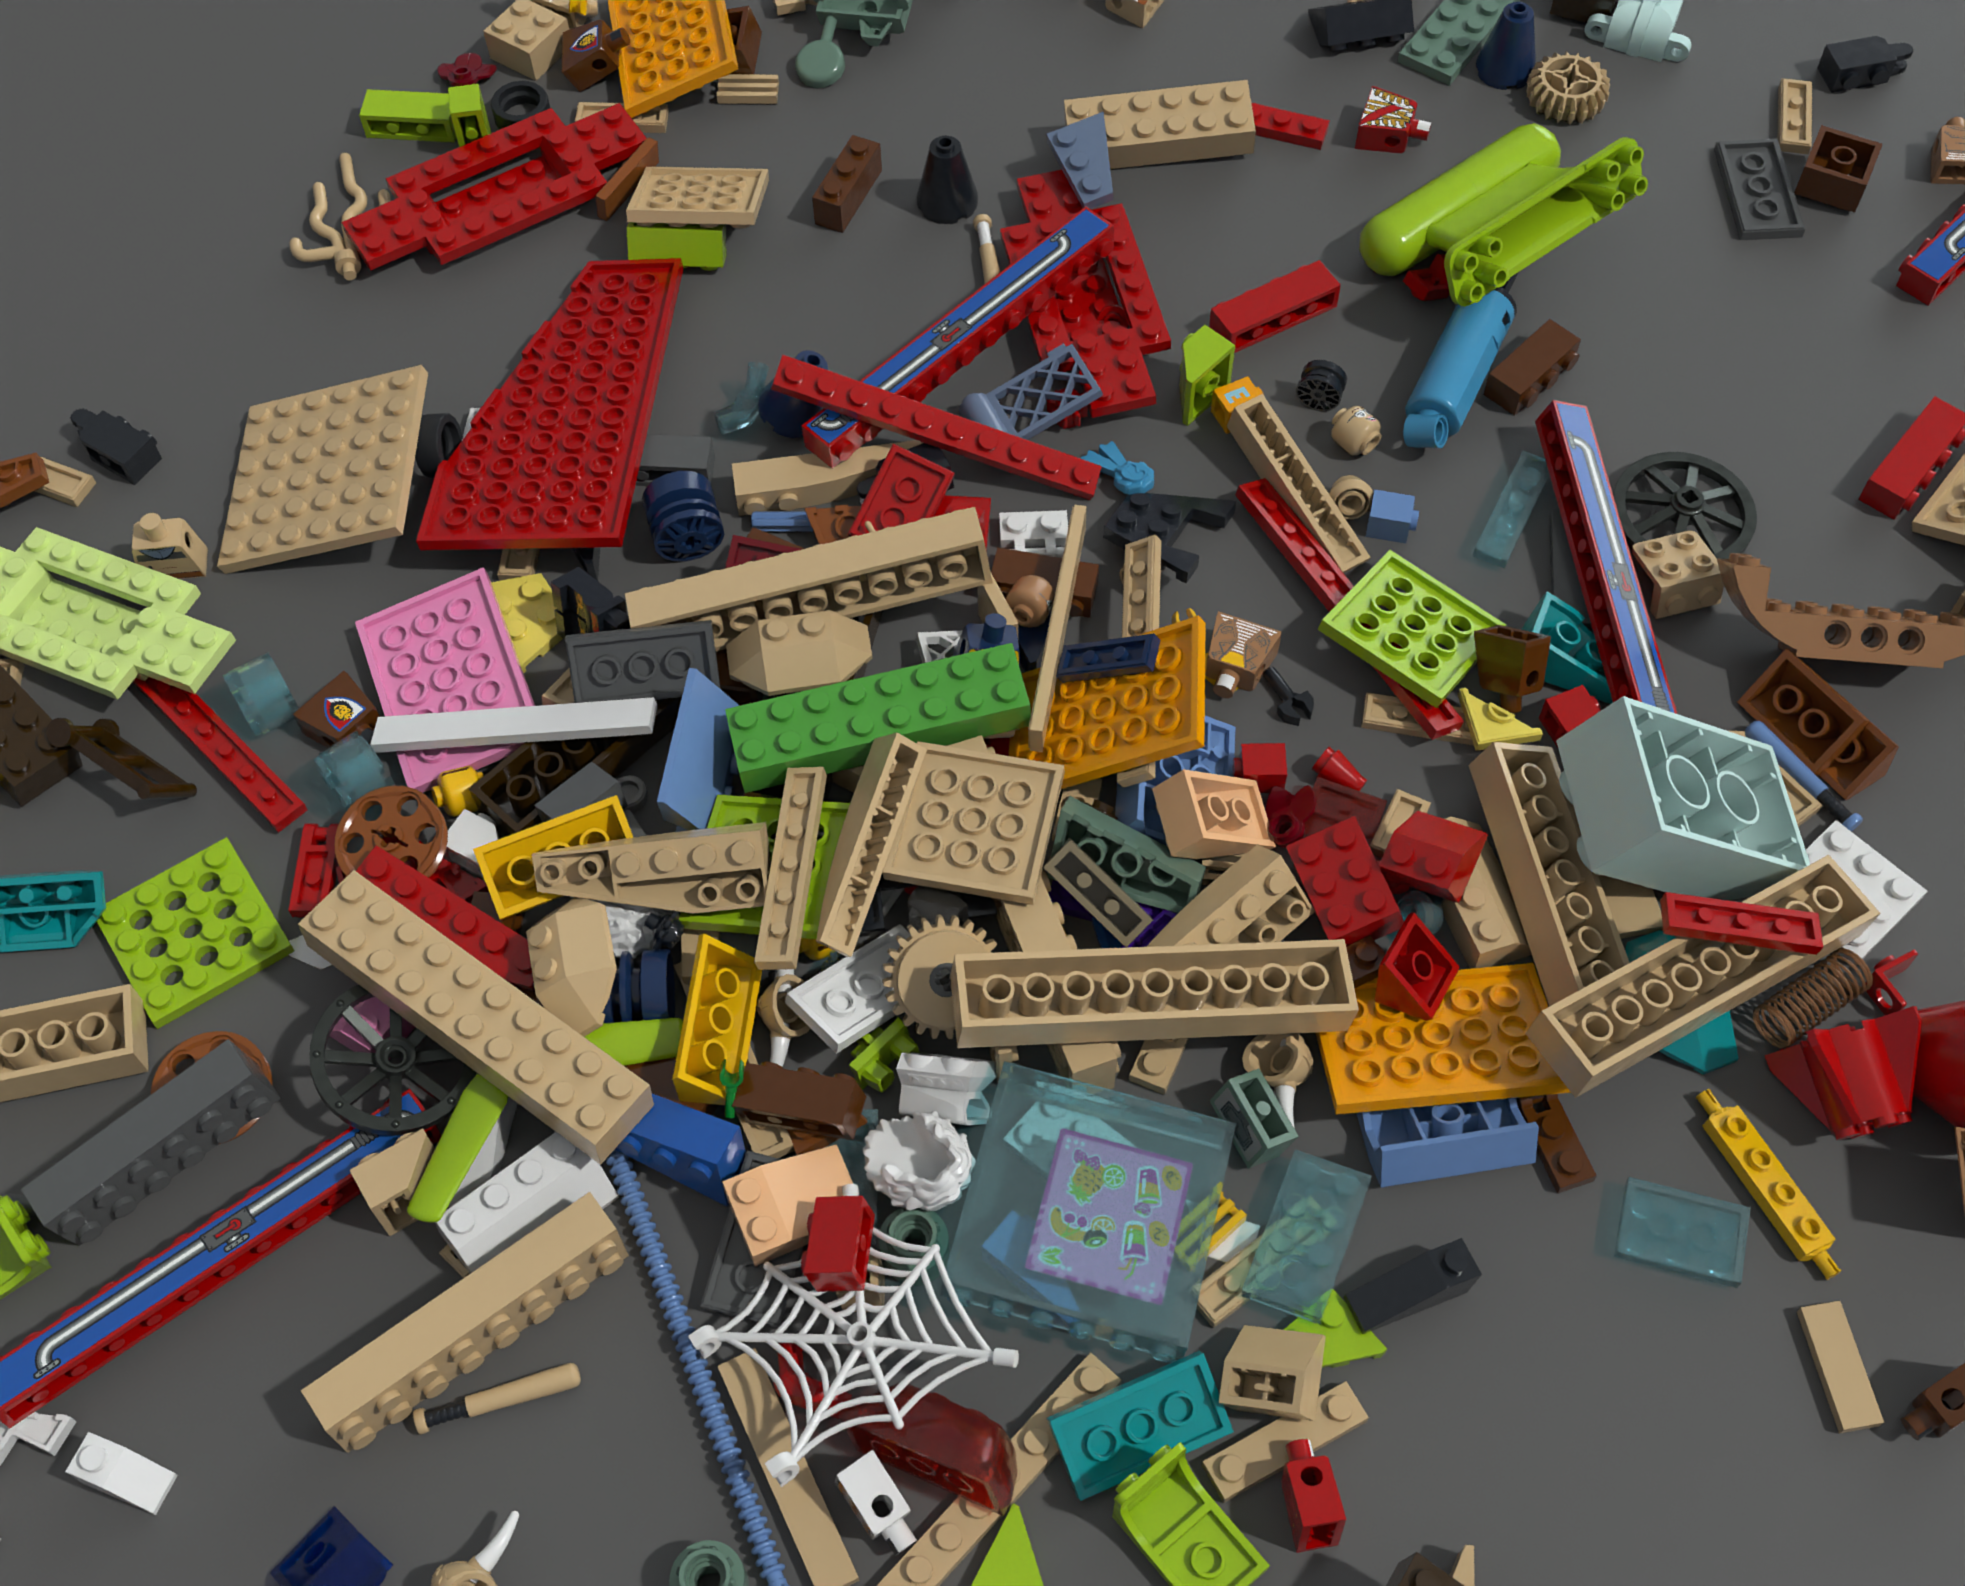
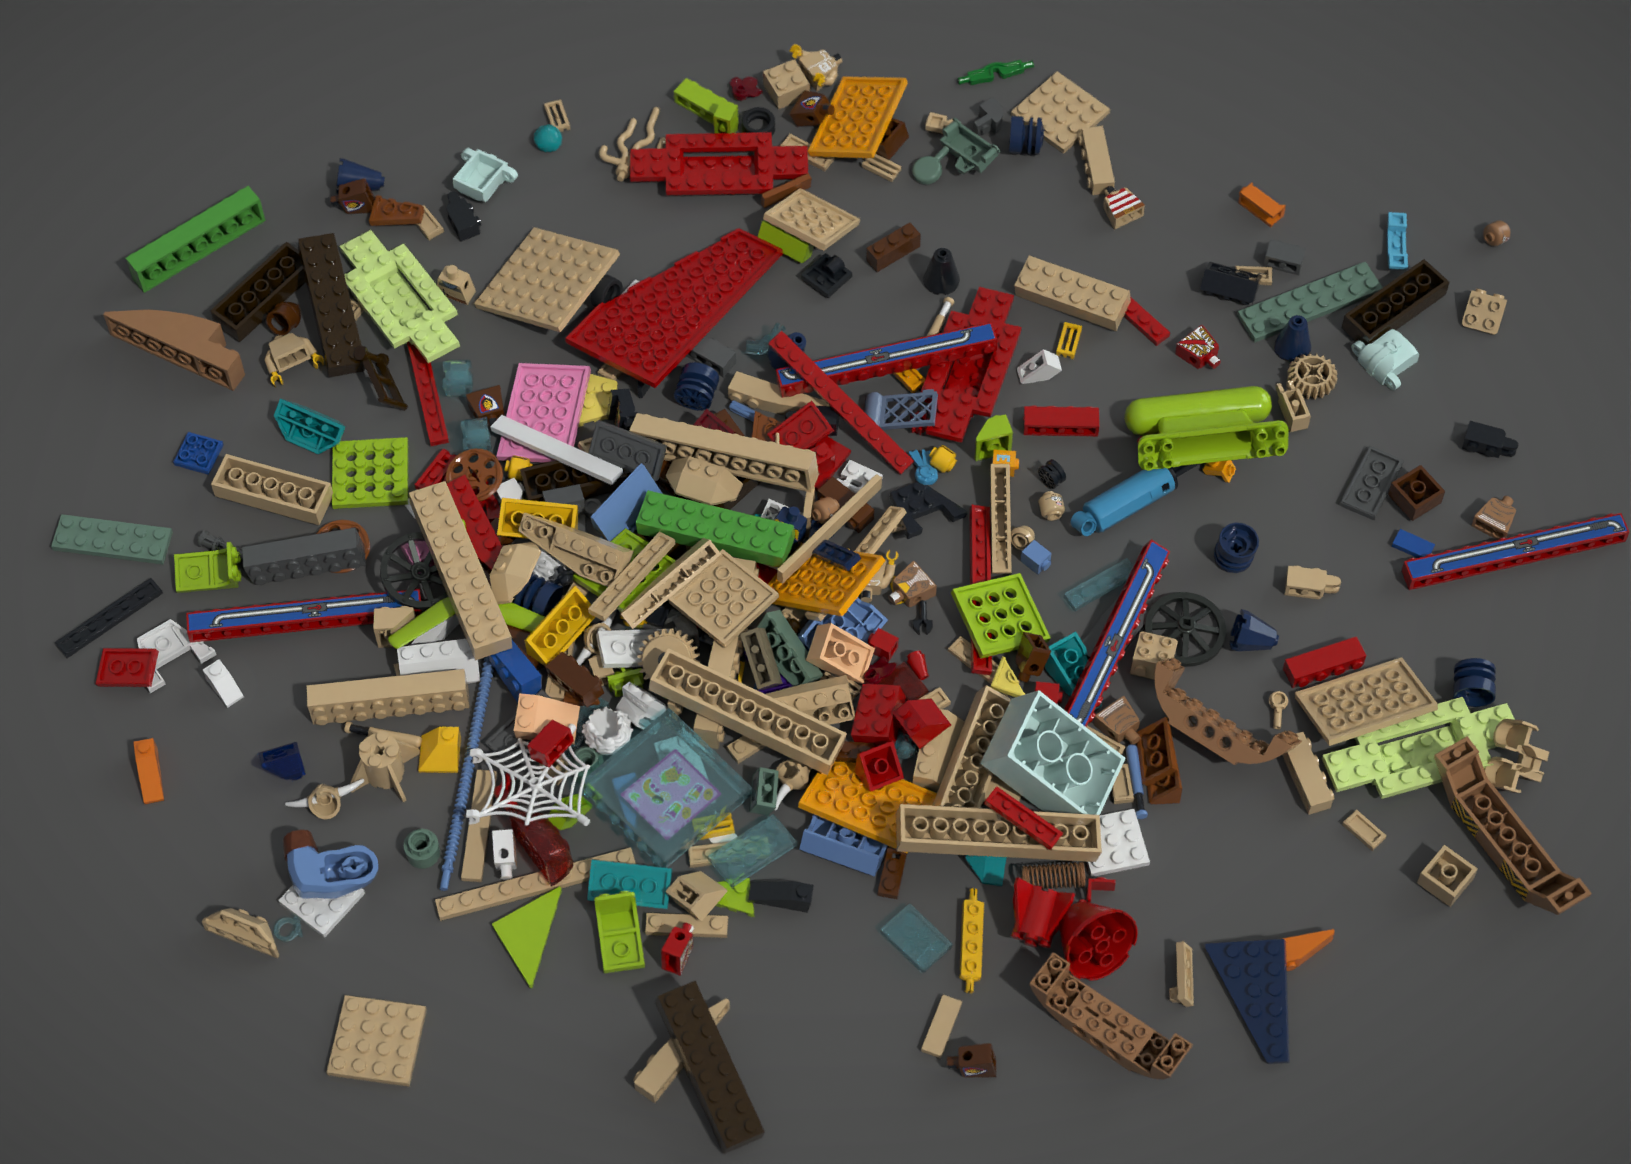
camera: 30 degrees right, 0 degrees up
(113, 364) = (482, 174): none -> light aqua piece
(192, 268) = (548, 138): none -> teal hair
(200, 245) = (561, 127): none -> tan tile
(534, 1455) = (383, 762): none -> tan brick
(625, 1369) = (440, 751): none -> yellow slope
(731, 1082) = (550, 655): green hand -> none
(773, 265) = (827, 274): none -> black plate
(818, 1056) = (597, 669): none -> tan brick
(938, 1336) = (567, 822): none -> lime slope
(1008, 353) = (911, 379): none -> light orange plate
(1084, 159) = (1014, 294): sand blue wing -> none
(1142, 442) = (942, 459): none -> yellow head
(1185, 250) = (1039, 367): none -> white slope
(1201, 213) = (1066, 352): none -> yellow tile
(1532, 367) = (1167, 518): reddish brown brick -> none
(1547, 266) = (1222, 468): none -> light orange bracket
(1578, 130) = (1293, 407): none -> tan hinge
(1668, 357) = (1236, 547): none -> dark blue wheel
(1711, 694) = (1118, 721): none -> medium nougat torso
(1783, 468) = (1252, 633): none -> dark blue cone
(1795, 116) = (1428, 450): tan tile -> none
(1797, 358) = (1310, 582): none -> tan hinge
(1883, 242) = (1412, 544): none -> blue tile
(1900, 548) = (1278, 702): none -> tan plate

